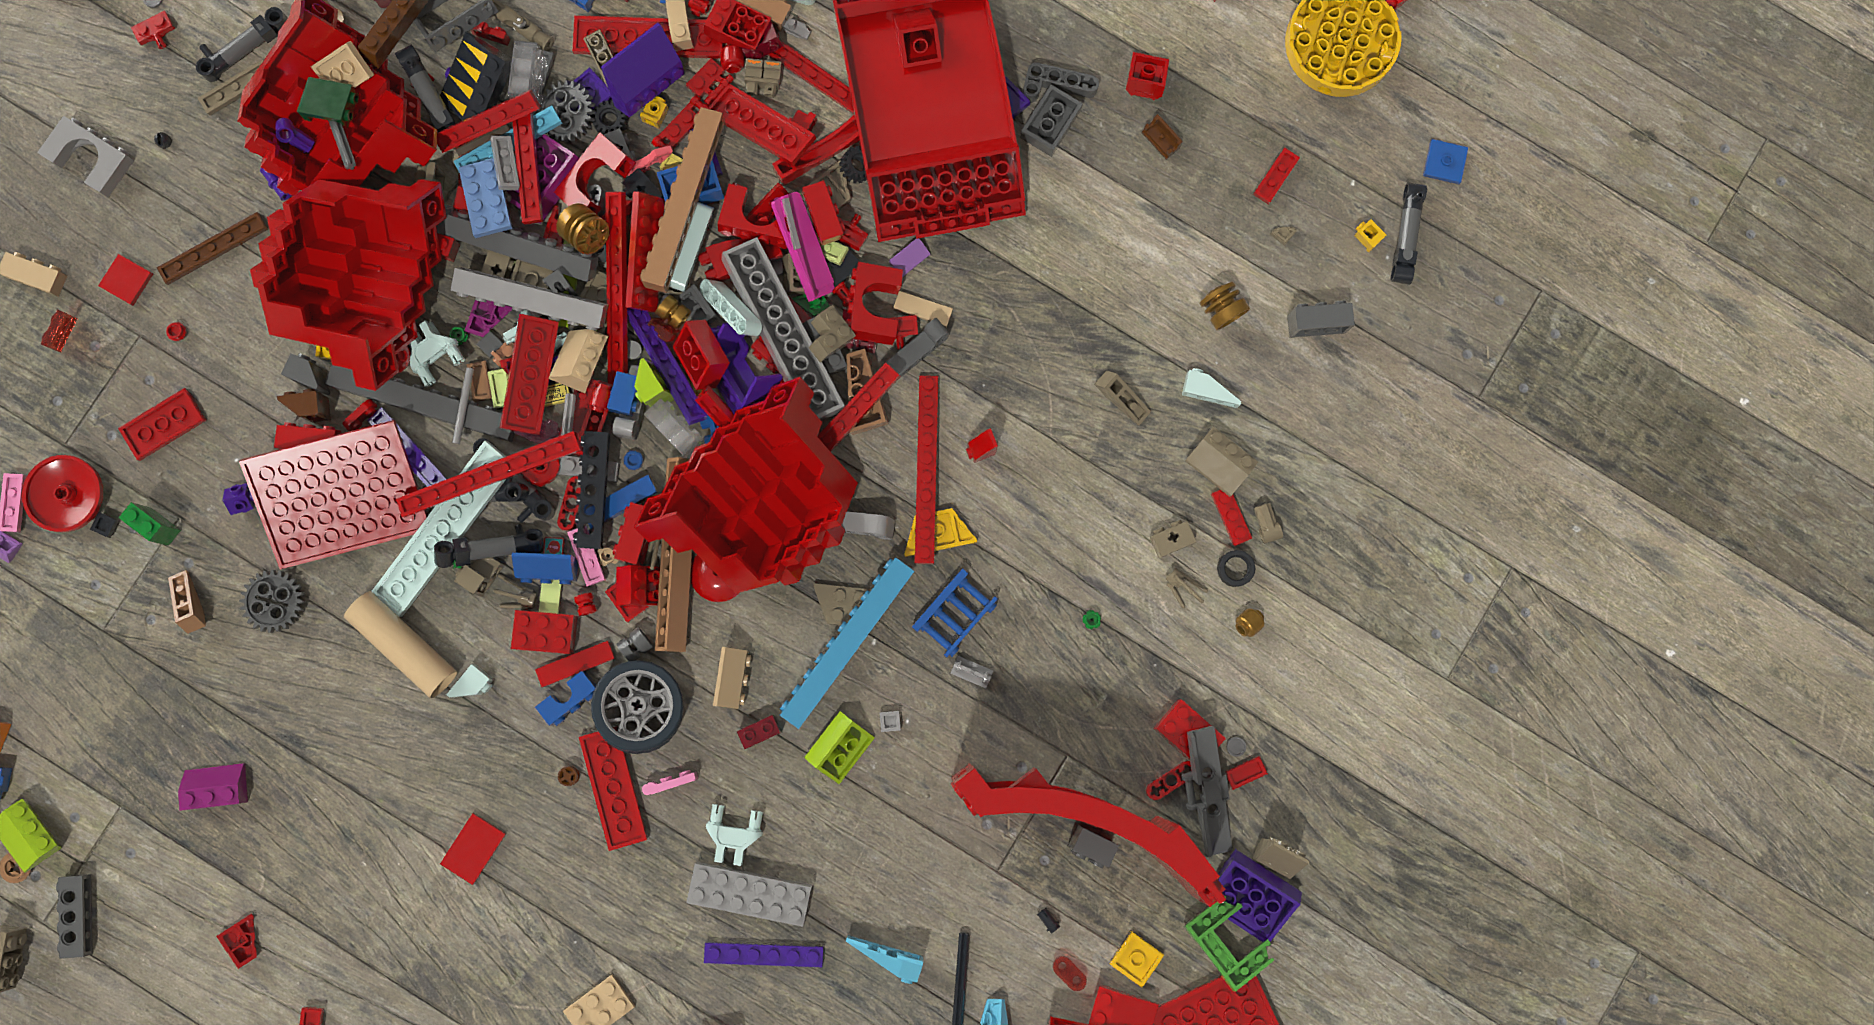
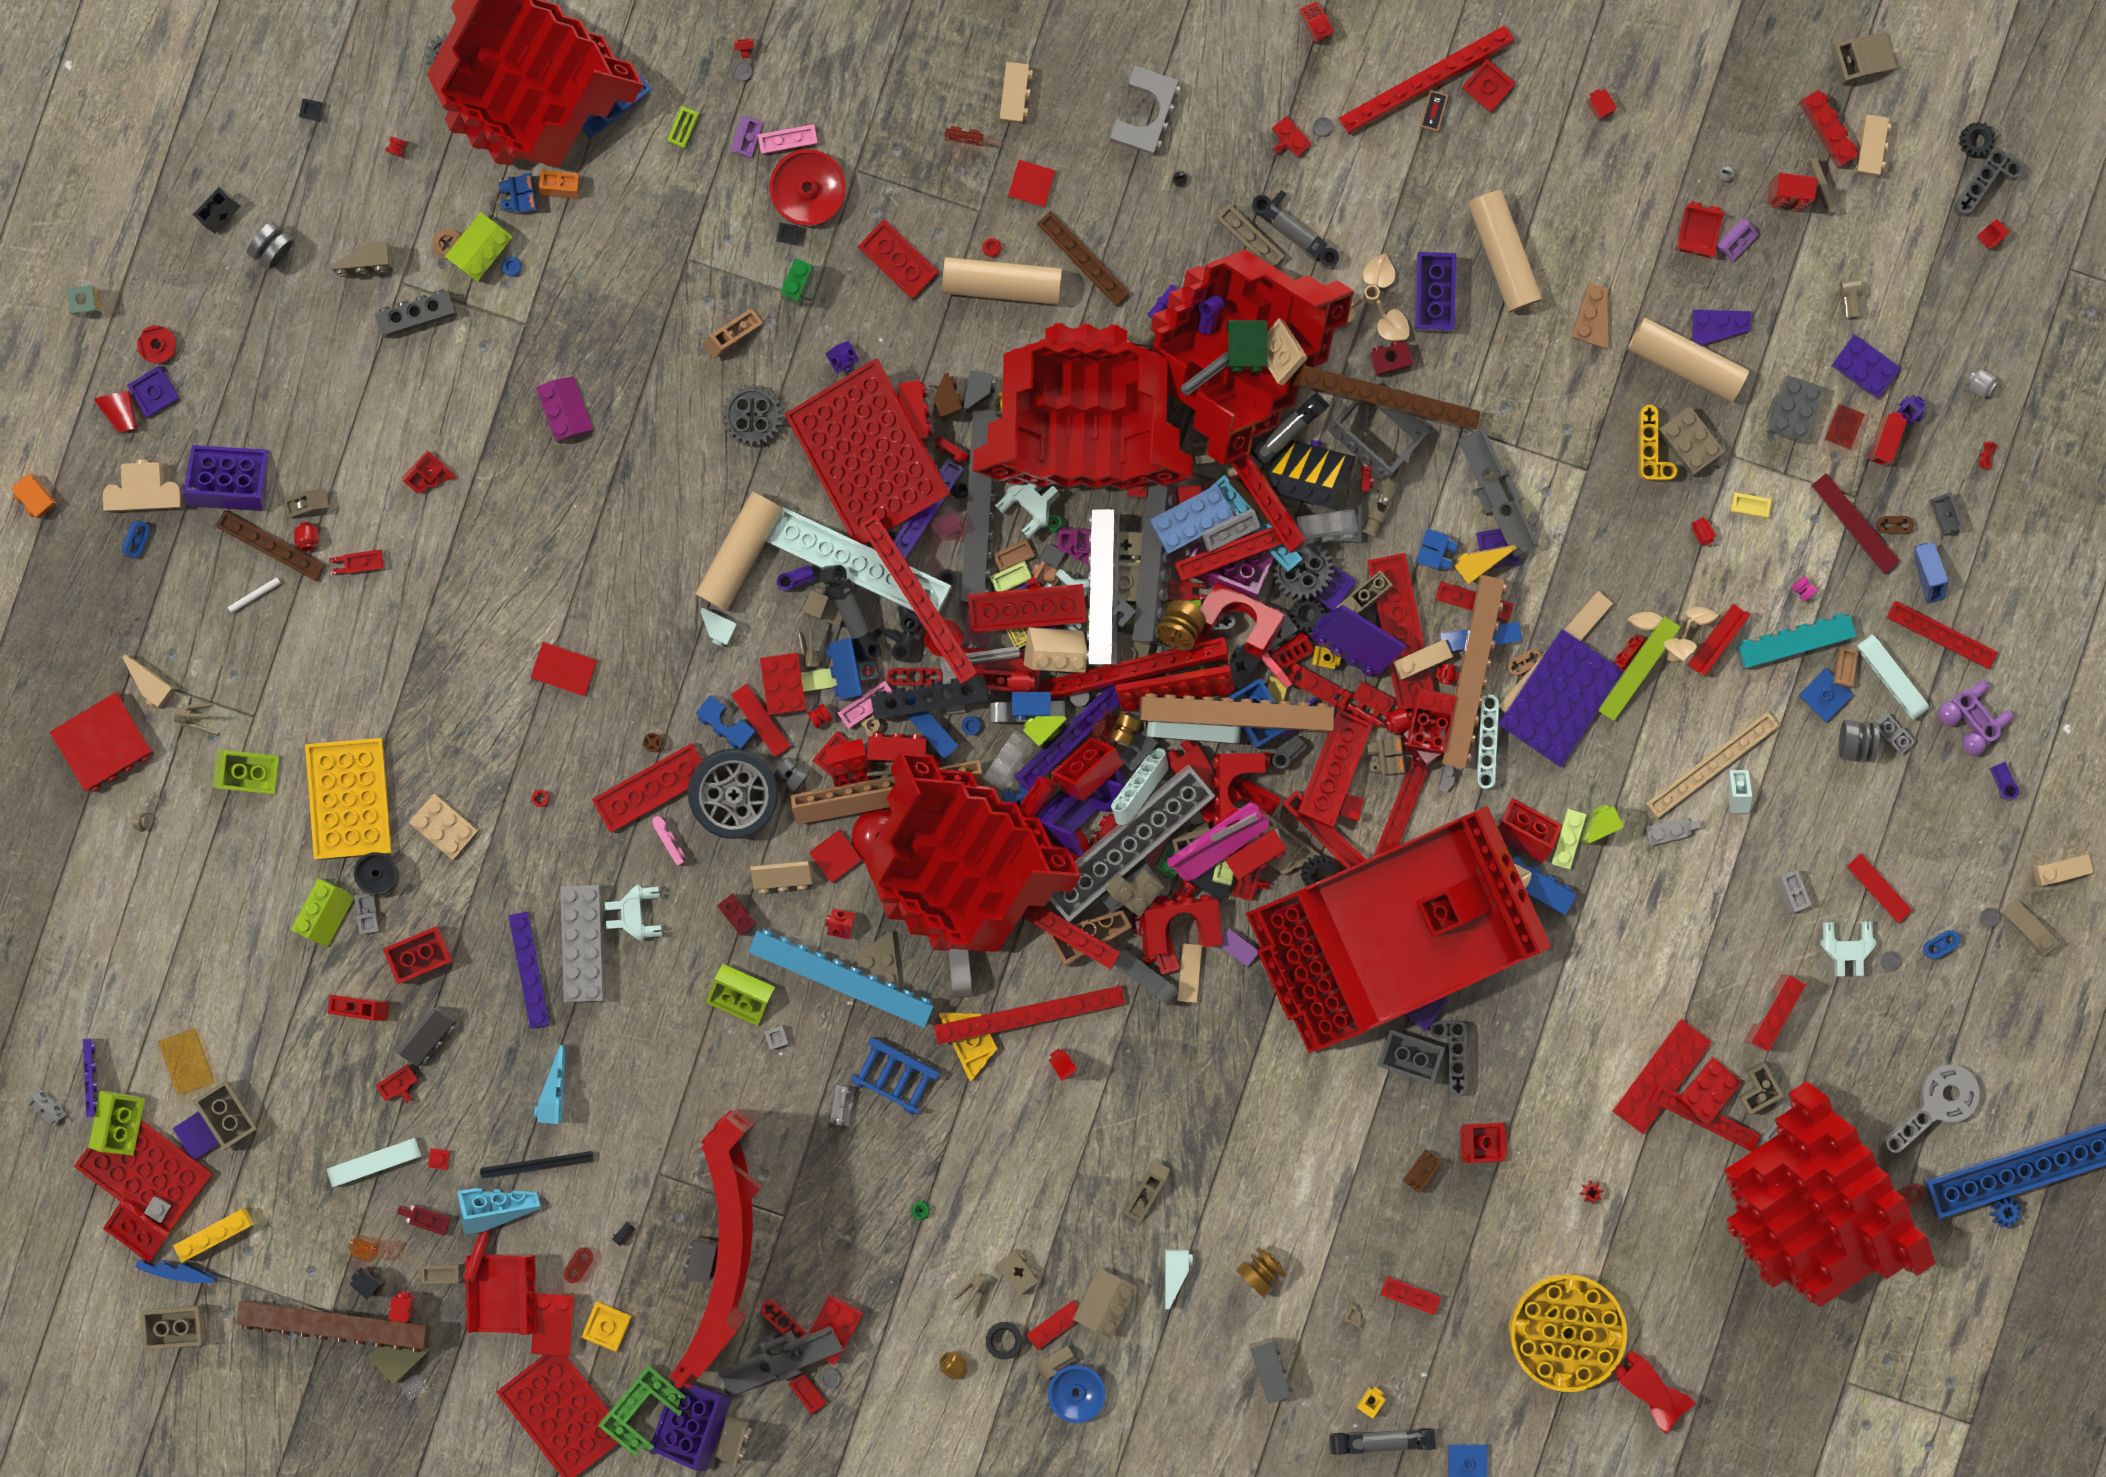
camera: 80 degrees right, 5 degrees up
(58, 807) = (511, 266): none -> blue tile
(207, 327) = (1001, 280): none -> tan piece
(402, 417) = (959, 491): none -> black hinge
(430, 435) = (947, 525): none -> clear pink brick
(444, 594) = (798, 577): none -> dark purple piece
(463, 406) = (982, 550): light grey bar -> none
(590, 906) = (544, 802): none -> red bush
(635, 128) = (1294, 642): none -> red slope
(726, 621) = (835, 856): none -> red tile
(736, 167) = (1289, 752): none -> dark grey piece
(793, 631) = (840, 923): none -> red brick
(1313, 501) = (1080, 1407): none -> blue dish

